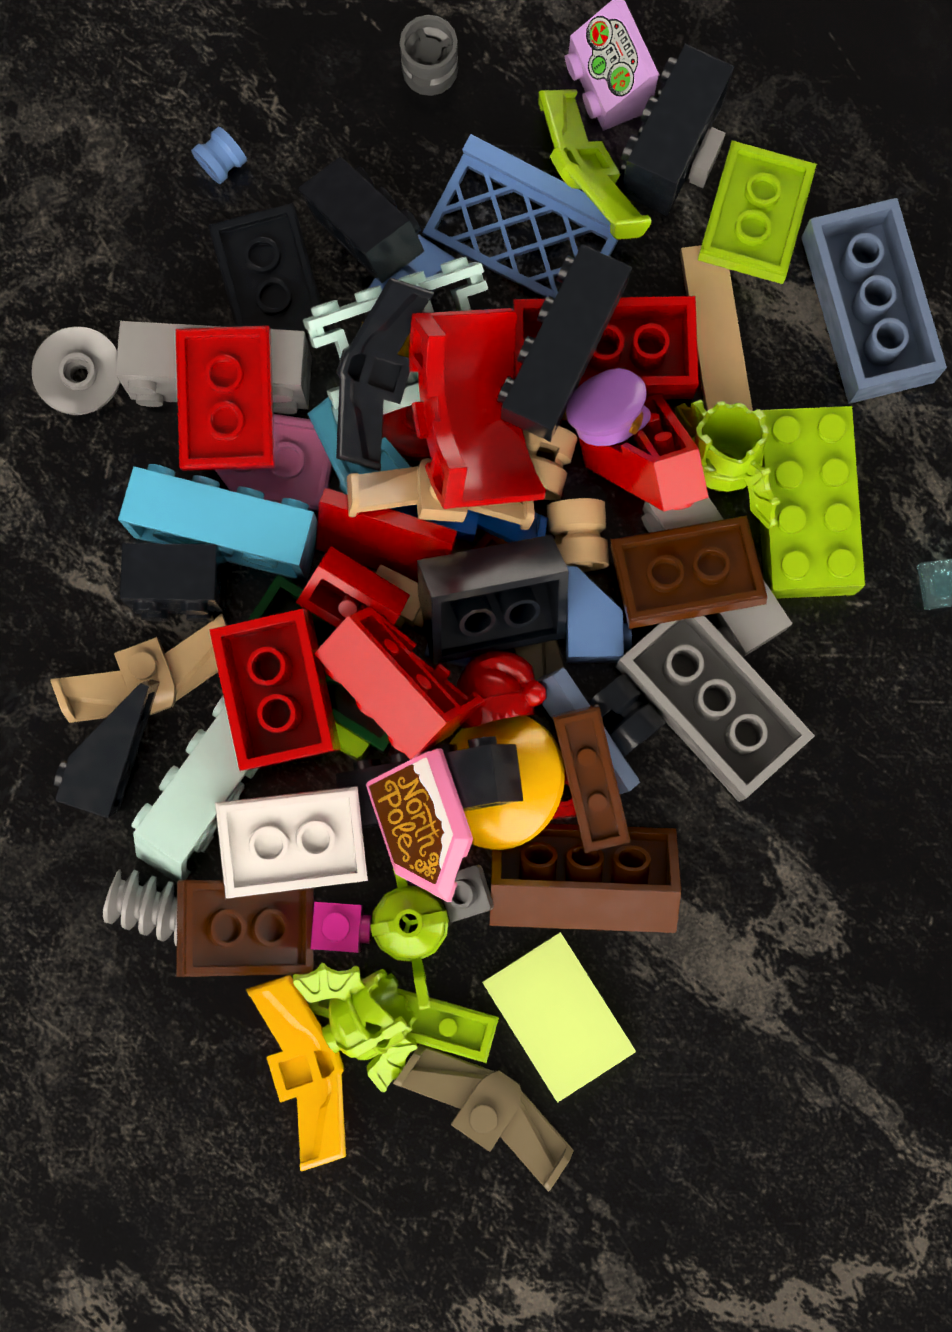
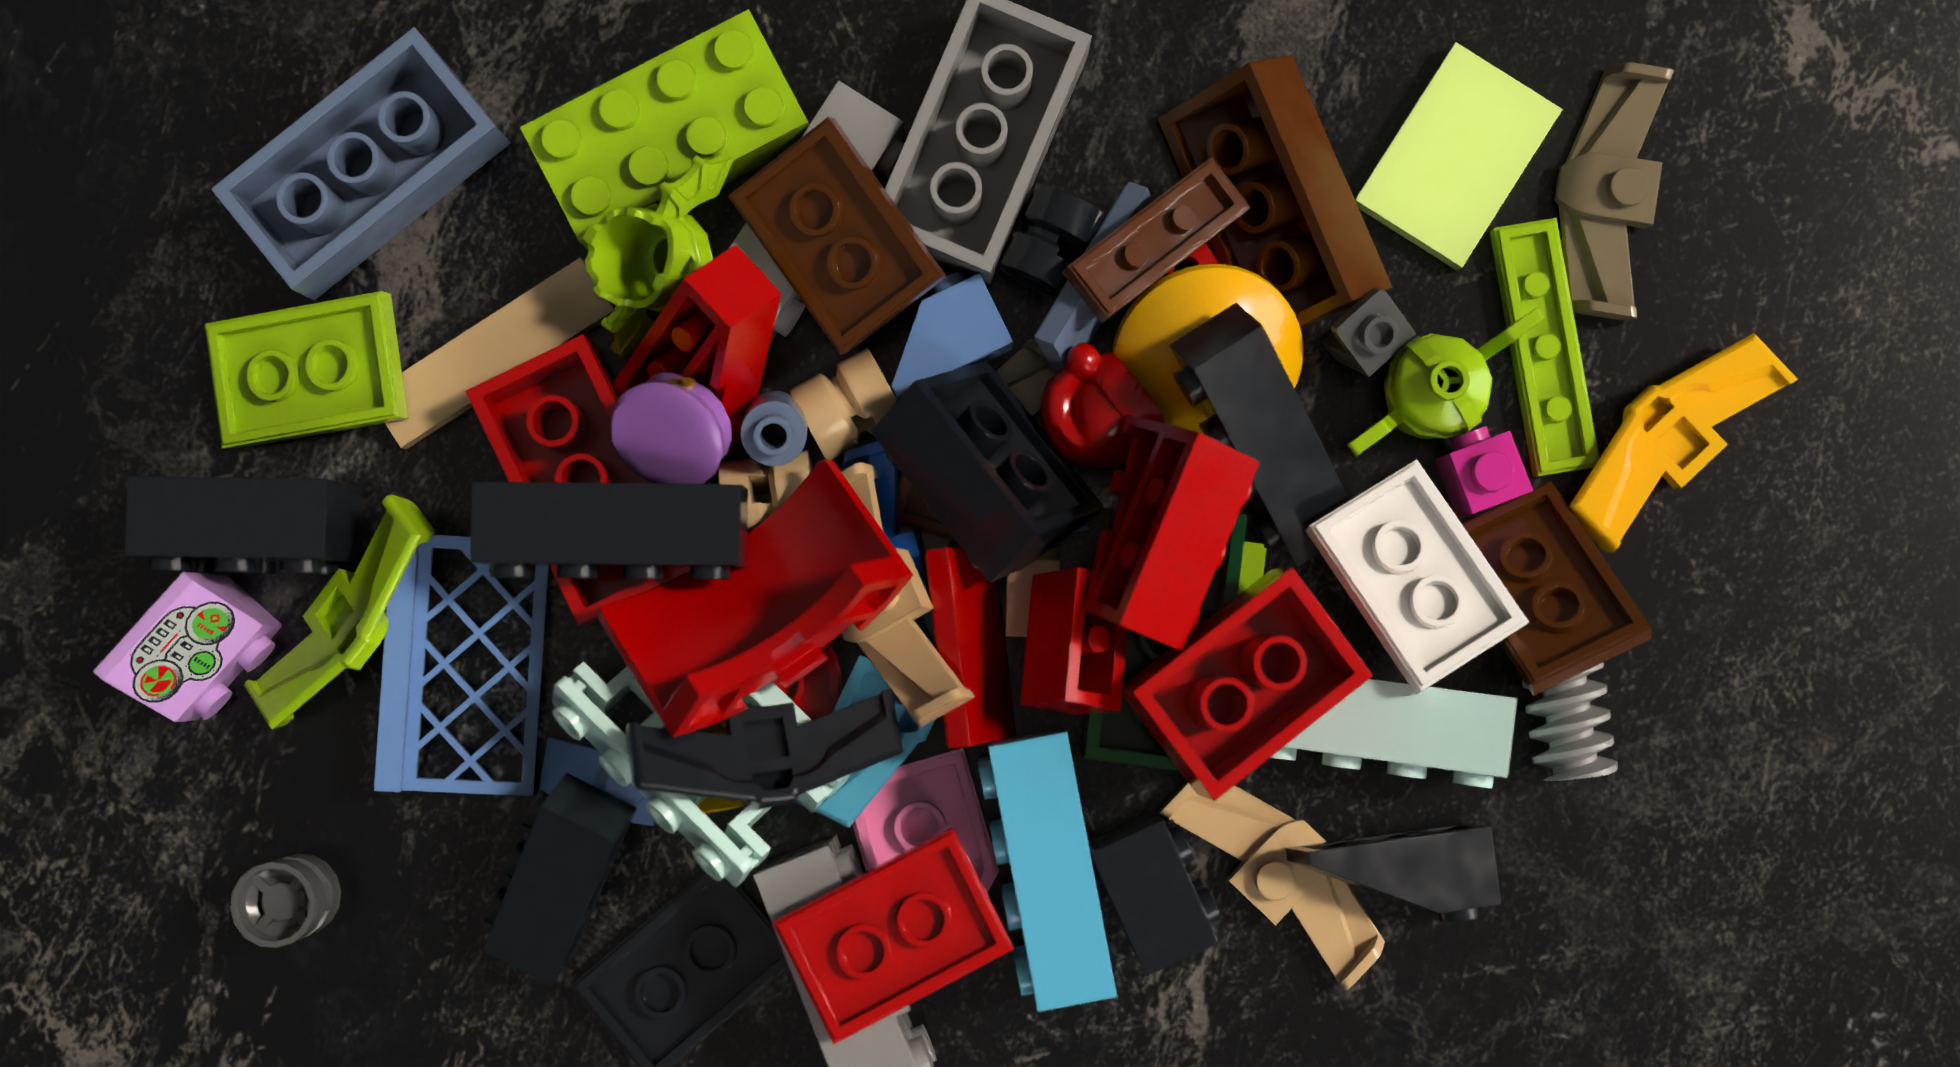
camera: 115 degrees left, 5 degrees up
(364, 1017) = (1584, 382): lime helmet -> none
(422, 822) = (1323, 414): tile -> none
(582, 476) = (774, 408): none -> sand blue brick
(706, 157) = (260, 466): light grey tile -> none

